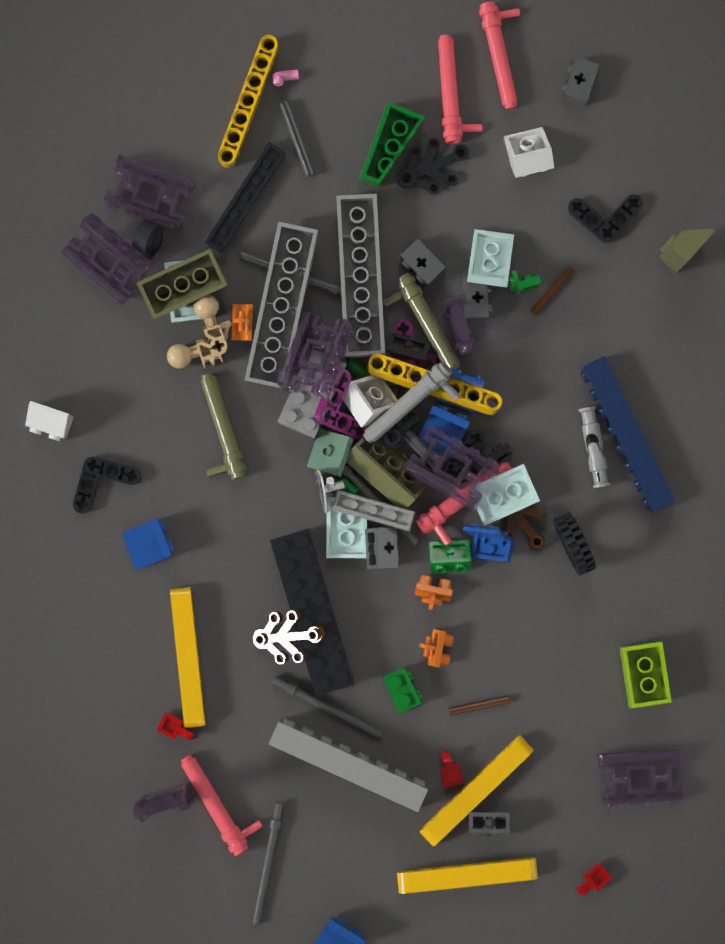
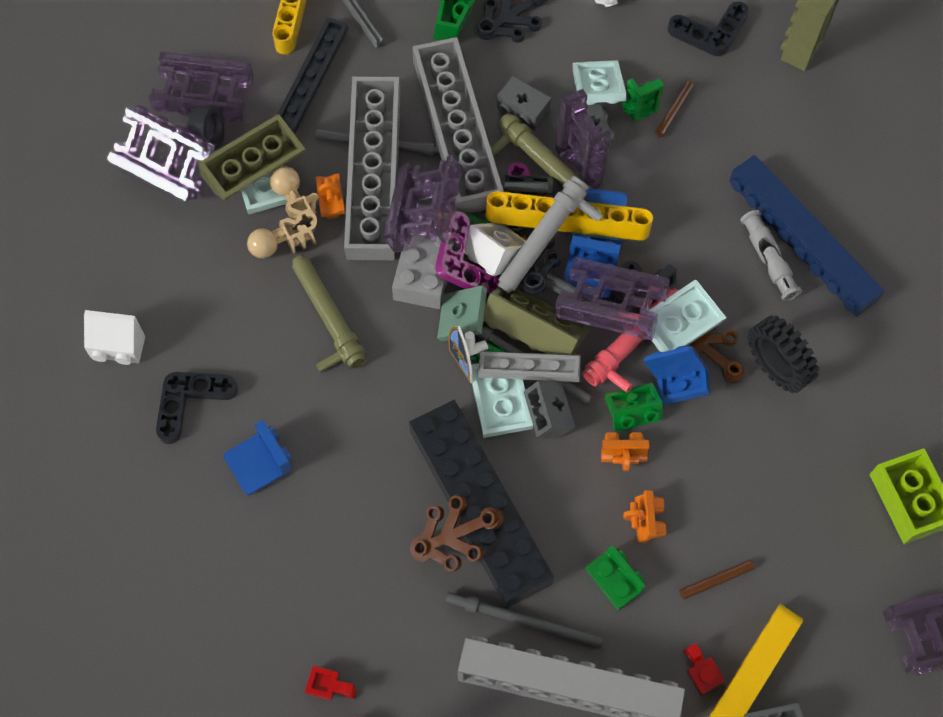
camera: 10 degrees left, 20 degrees down
(187, 657) = (331, 592): yellow beam -> none

